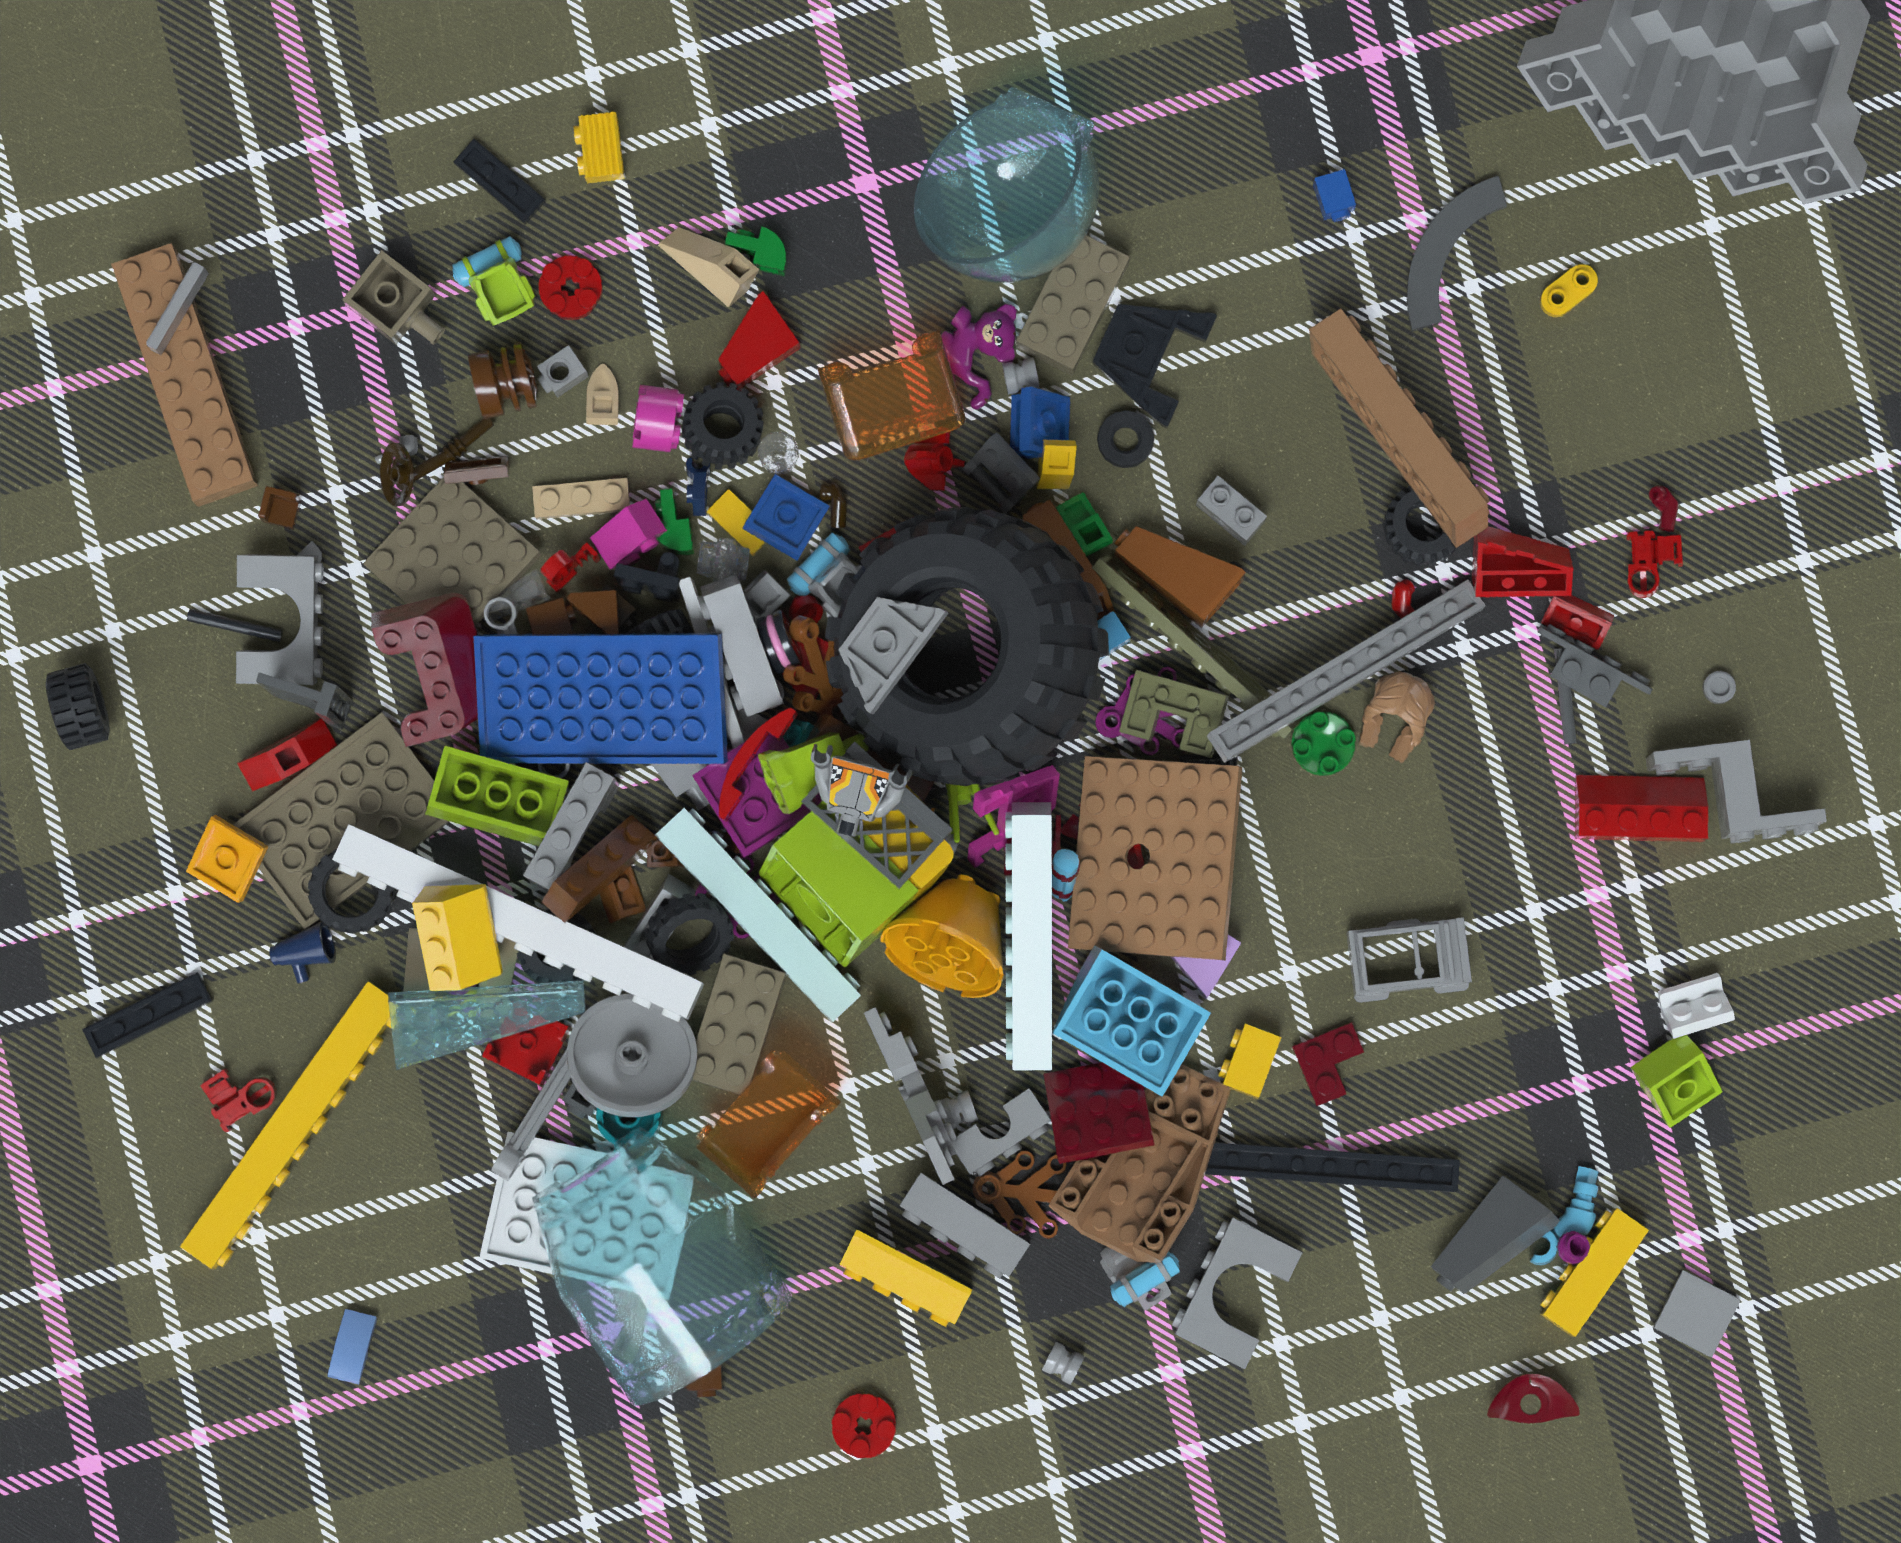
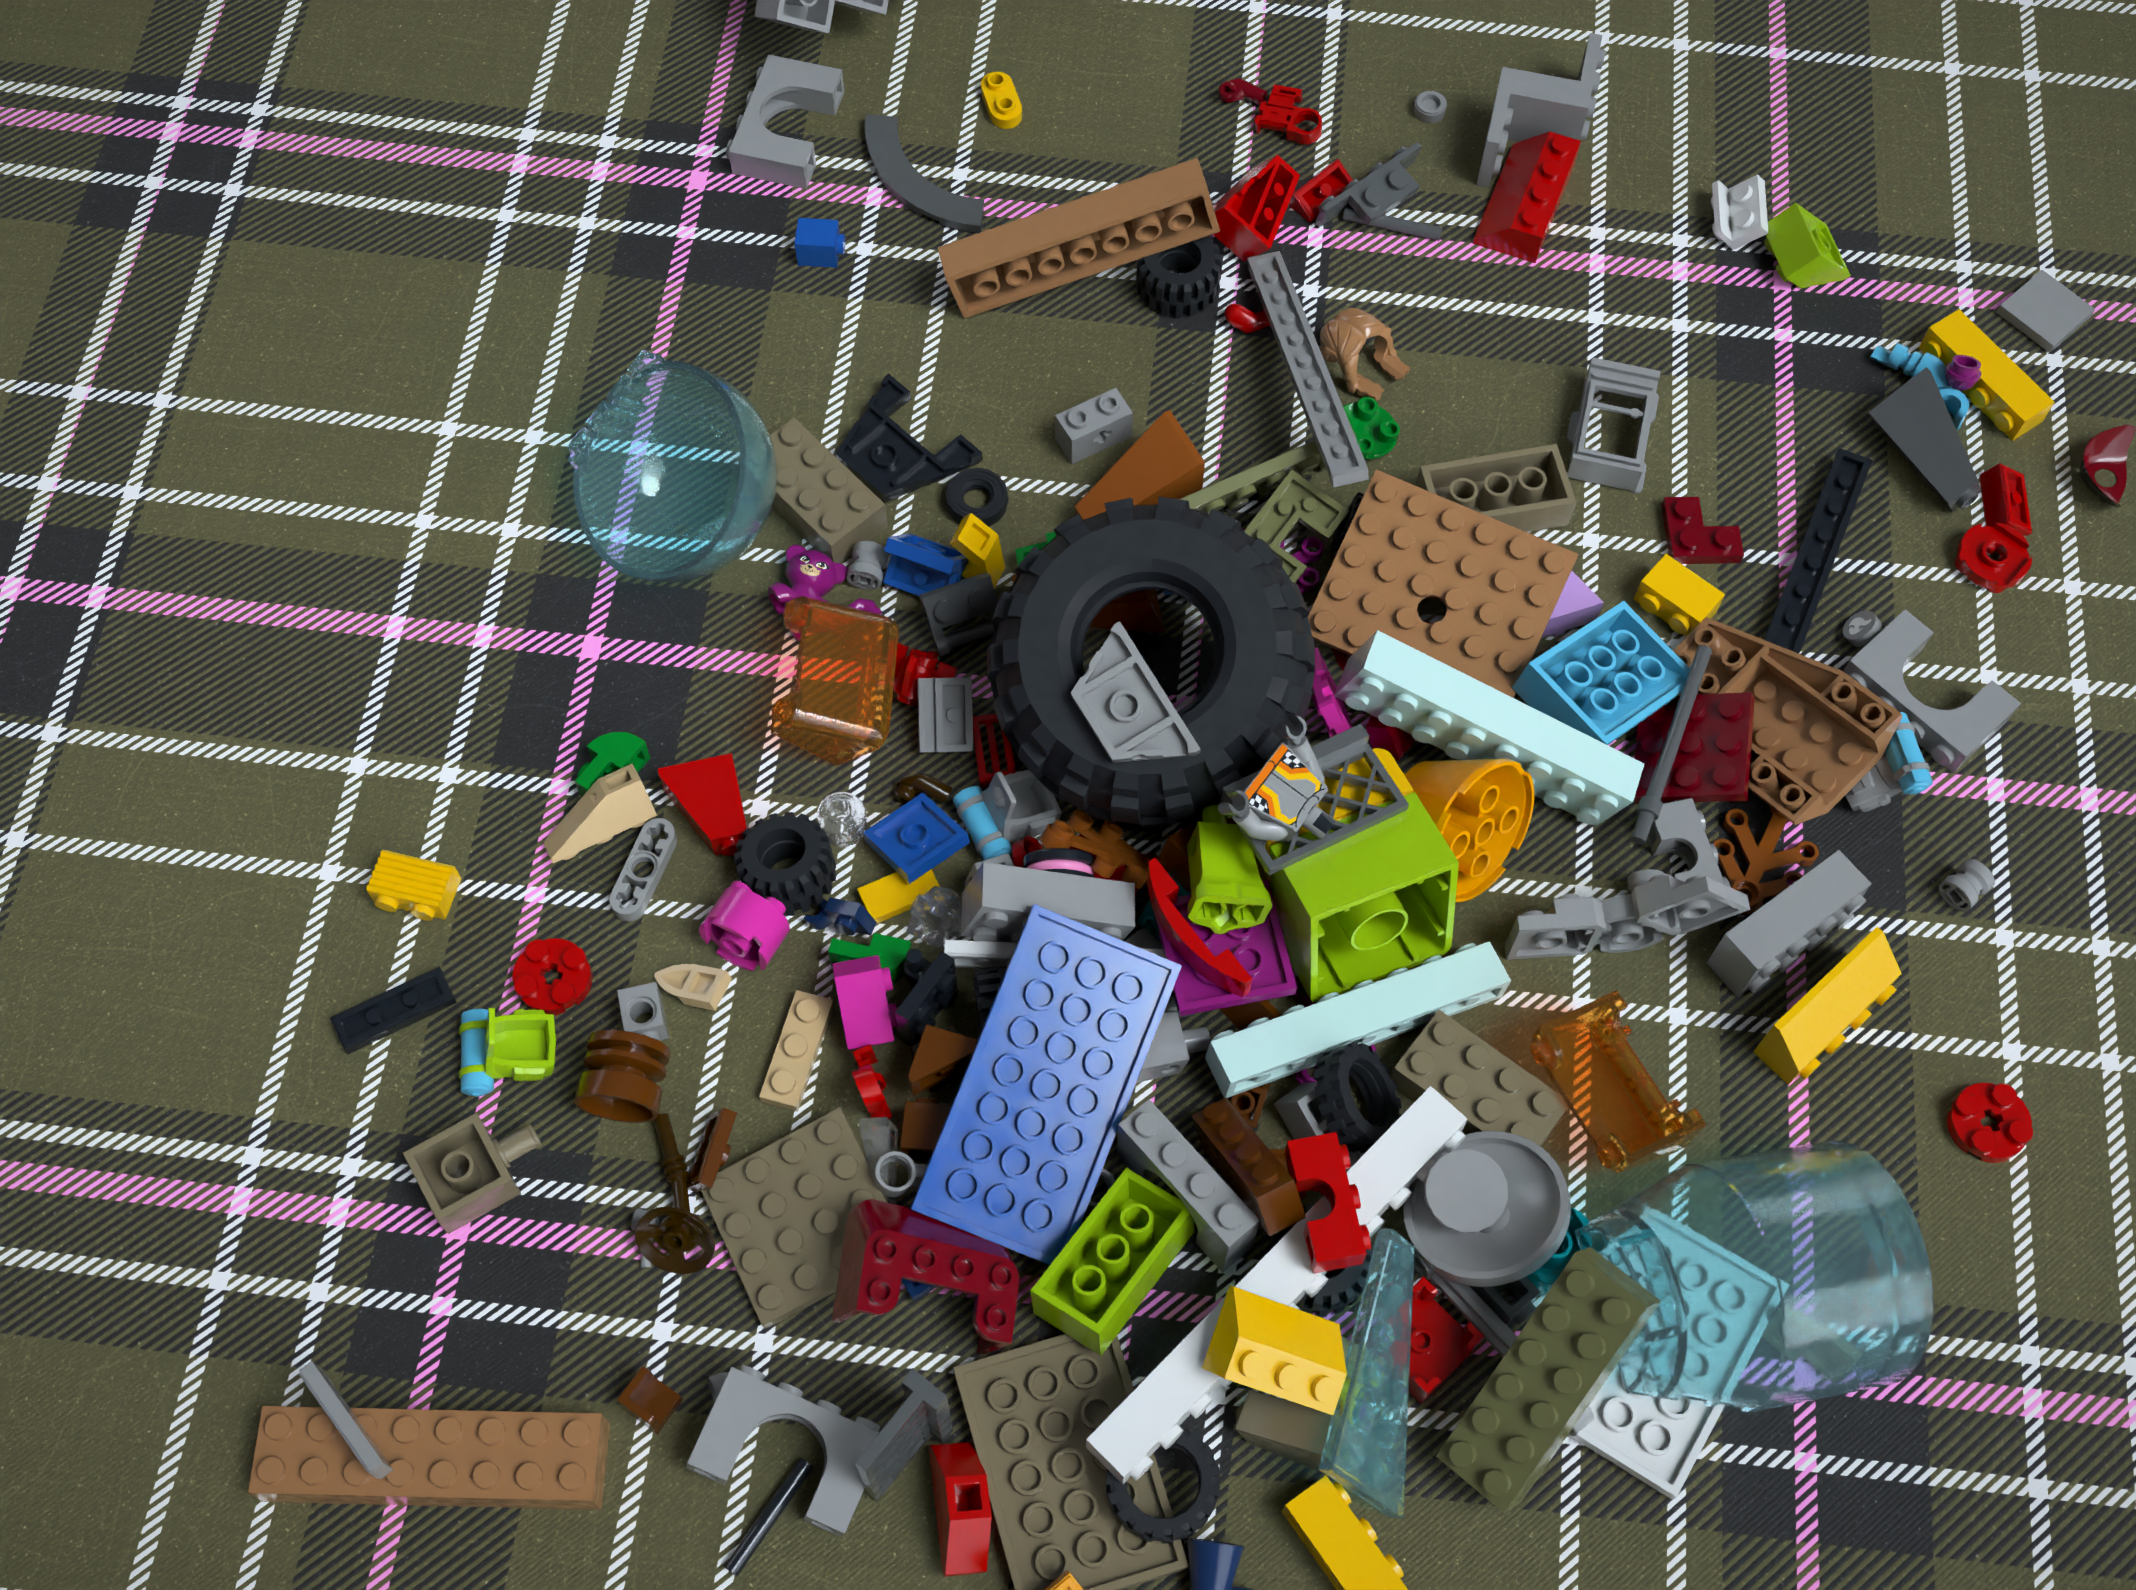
camera: 75 degrees left, 20 degrees down
(511, 1134) = (1548, 1378): none -> olive brick
(602, 922) = (1321, 1166): none -> red arch
(629, 1033) = (1465, 1191): none -> light grey tile
(660, 323) = (642, 853): none -> light grey beam
(901, 496) = (945, 714): none -> light grey plate
(1024, 1087) = (1650, 805): none -> dark grey bar
(1279, 1223) = (1862, 628): none -> light grey tile
(1289, 876) = (1515, 487): none -> dark tan brick
(1417, 1314) = (1984, 571): none -> red plate
(1467, 1321) = (2005, 498): none -> red slope
(1497, 84) = (780, 87): none -> light grey arch

